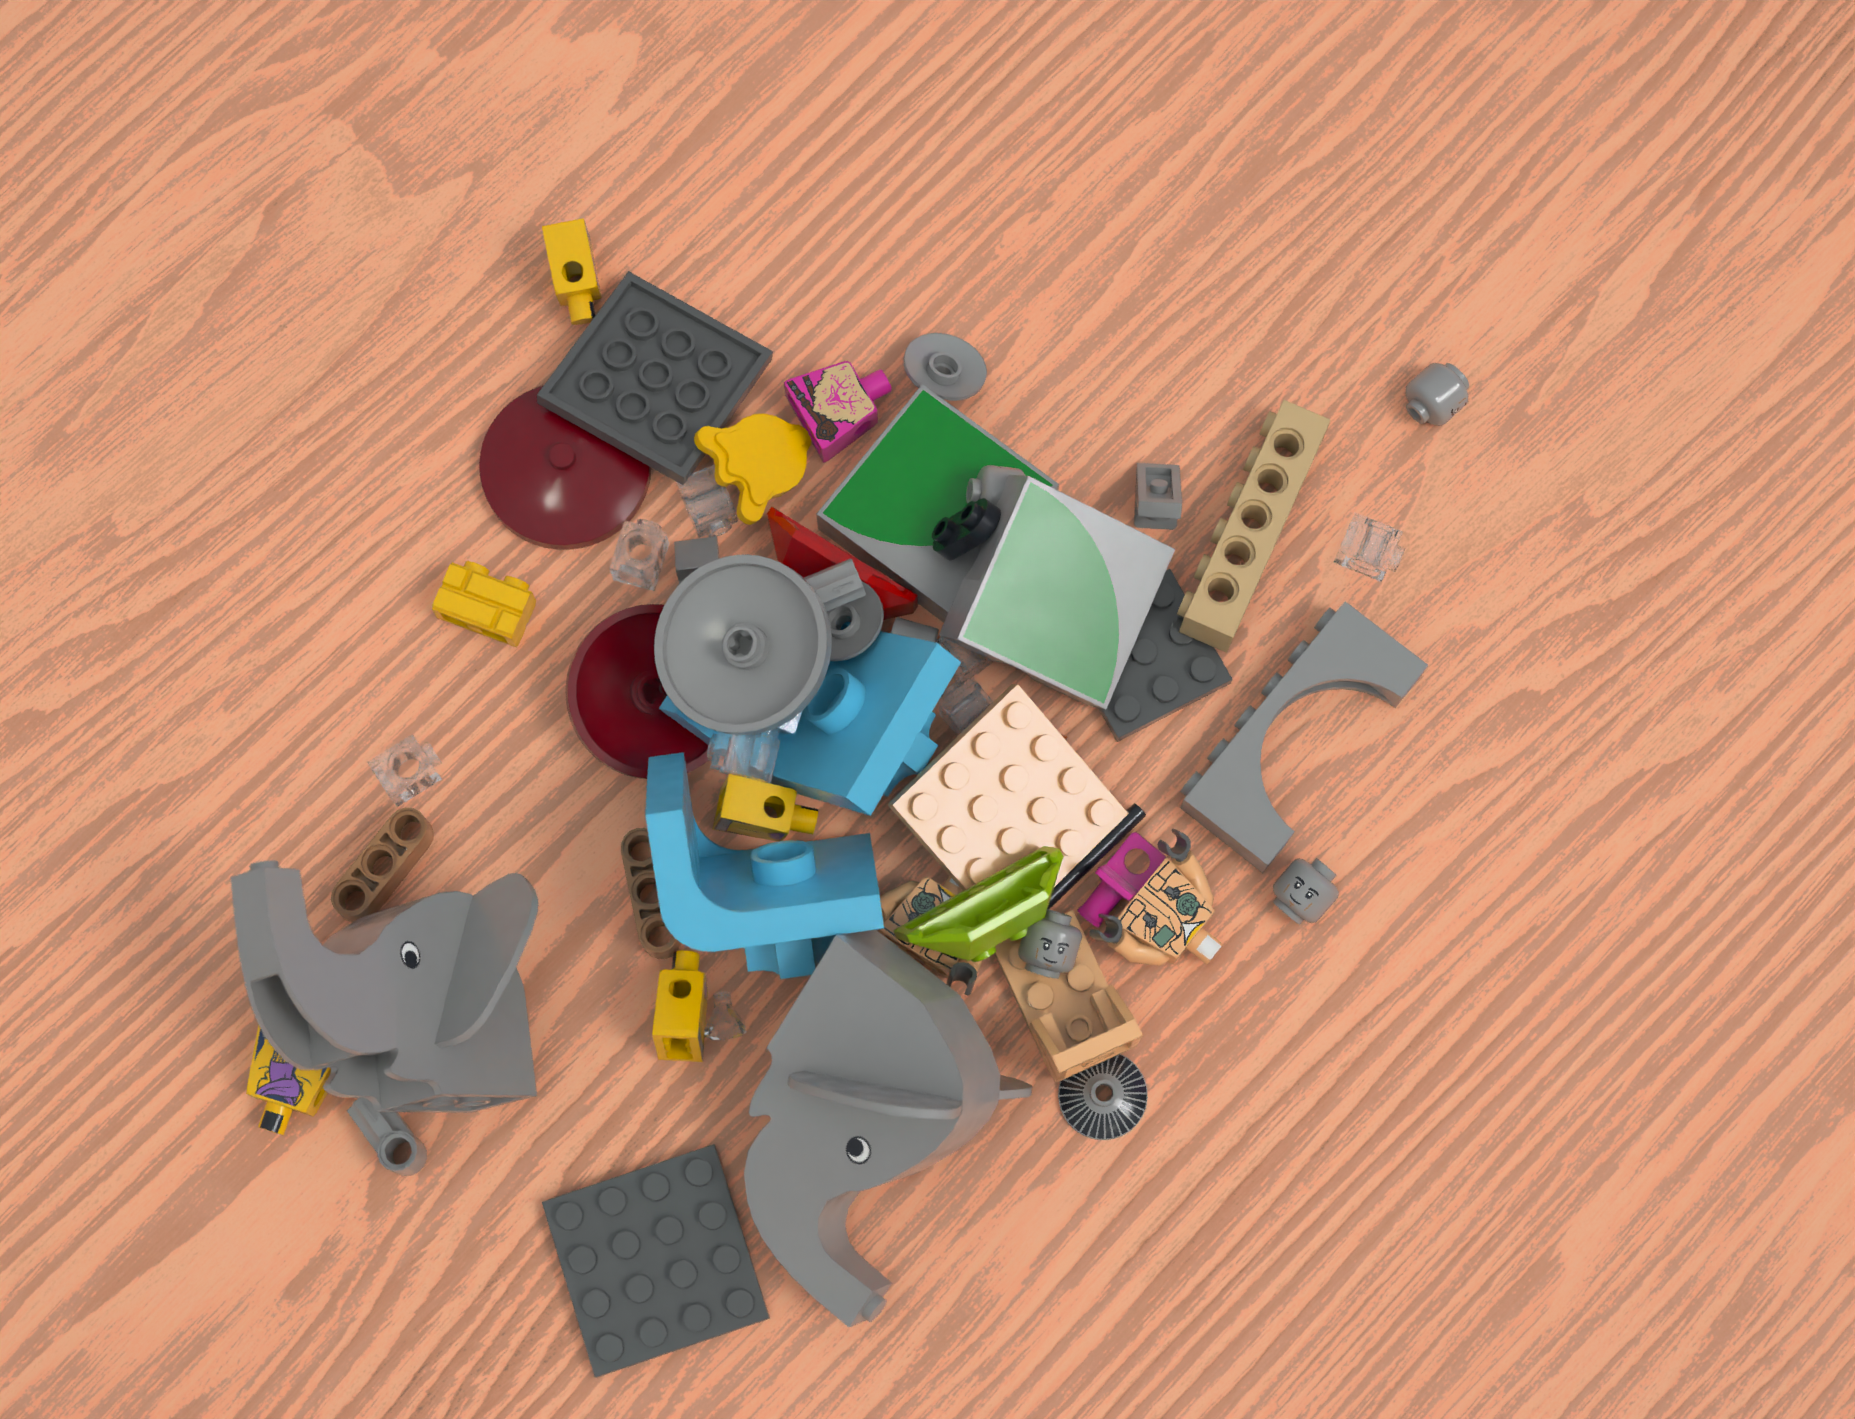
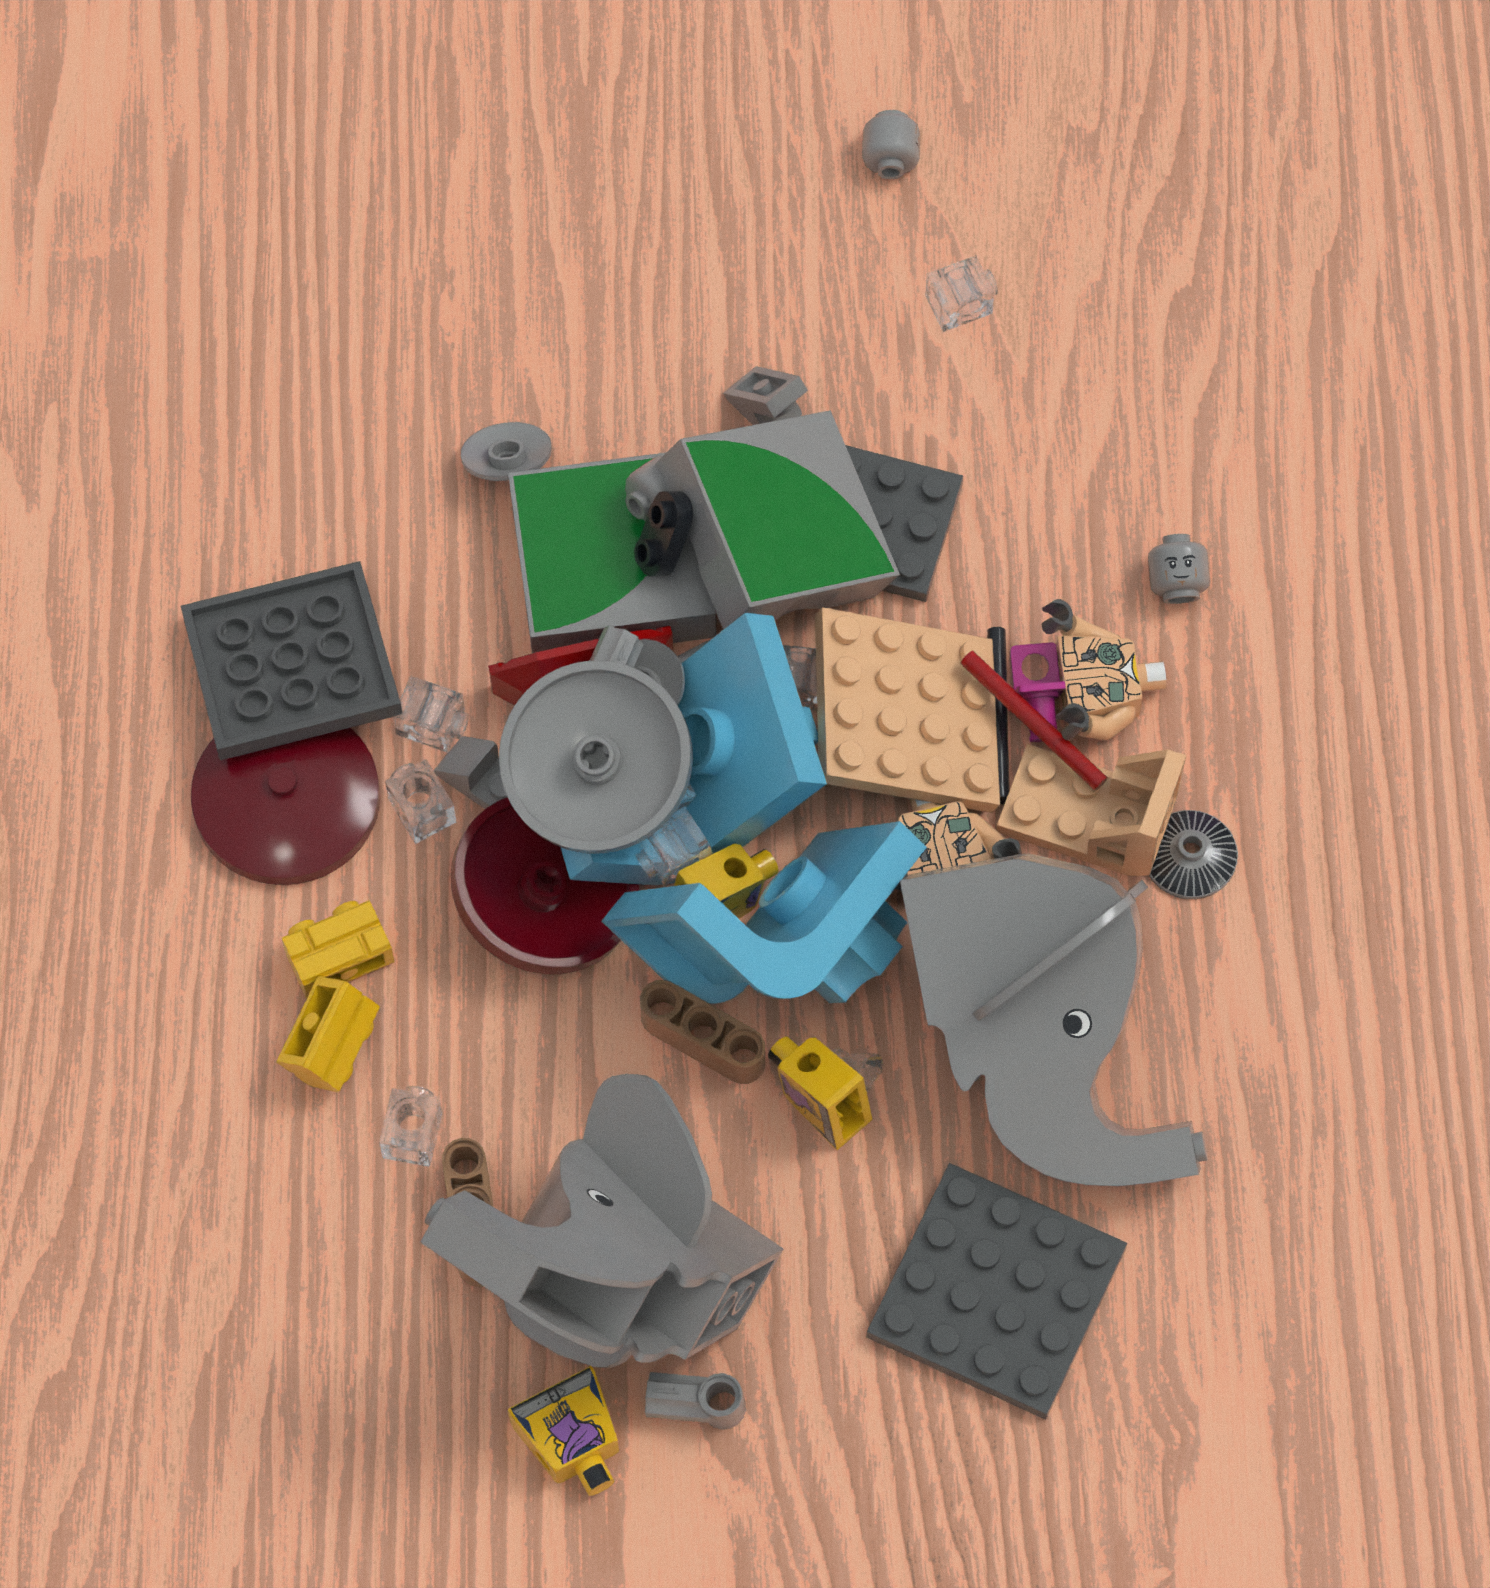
camera: 45 degrees left, 10 degrees down
(415, 657) = (328, 1034): none -> yellow brick
(569, 256) = (136, 639): yellow torso -> none
(757, 456) = (436, 642): yellow tile -> none
(836, 405) = (451, 556): torso -> none
(990, 910) = (976, 783): lime wedge -> none
(1050, 945) = (1042, 773): light grey head -> none
(1086, 899) = (1033, 720): none -> red bar
(1302, 435) = (828, 259): tan brick -> none
(1344, 655) = (1051, 551): light grey arch -> none

